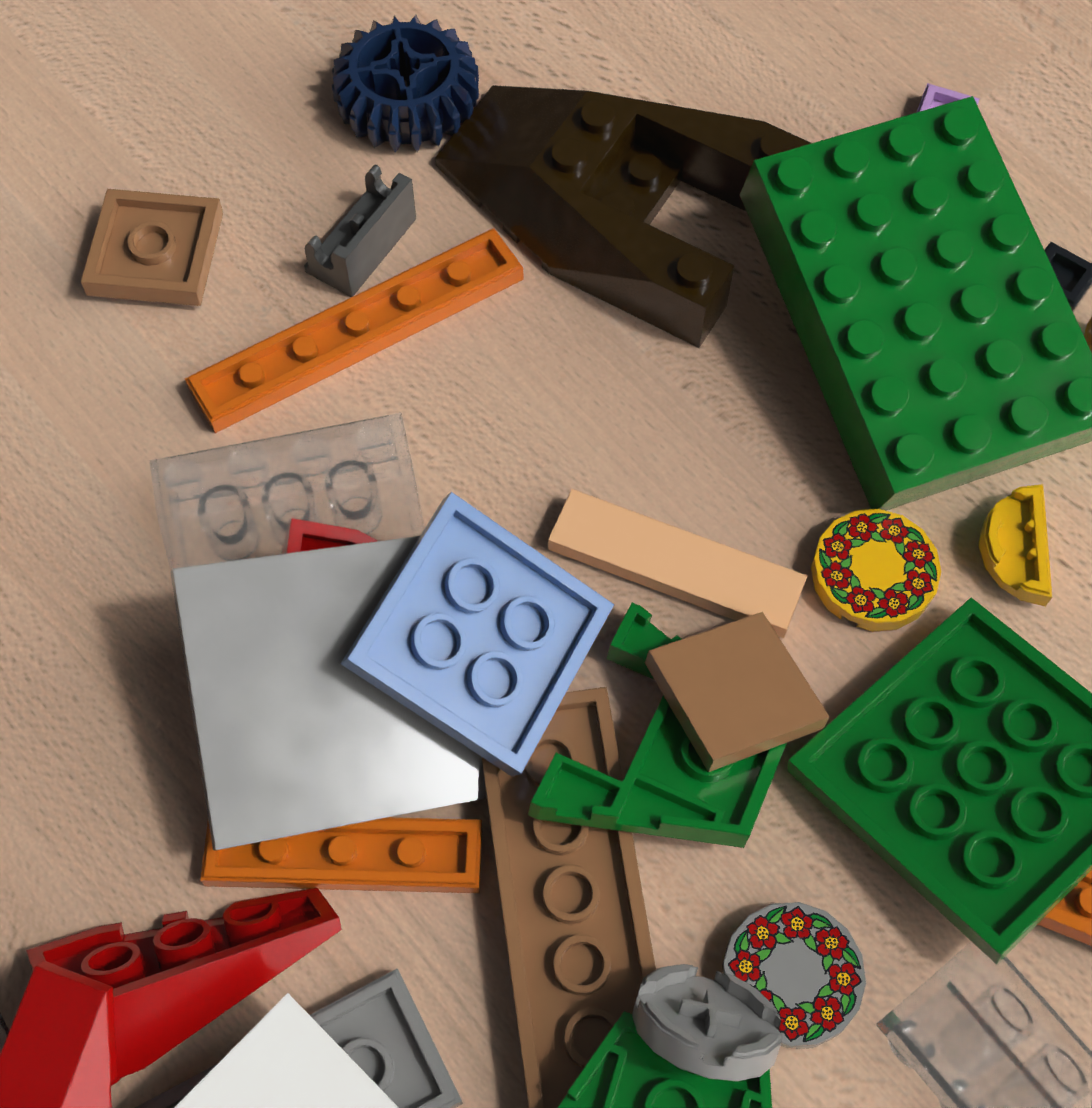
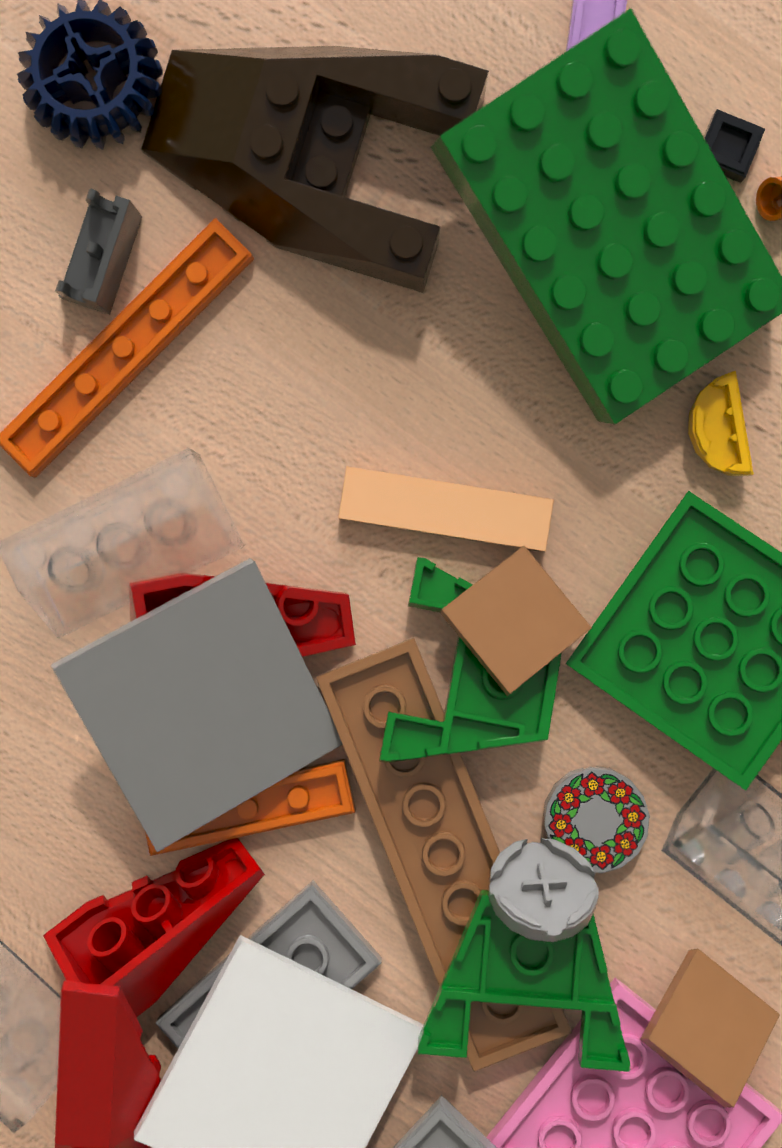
camera: 10 degrees left, 25 degrees up
(479, 635) = (306, 638): medium blue plate -> none
(876, 569) = (608, 476): tile -> none

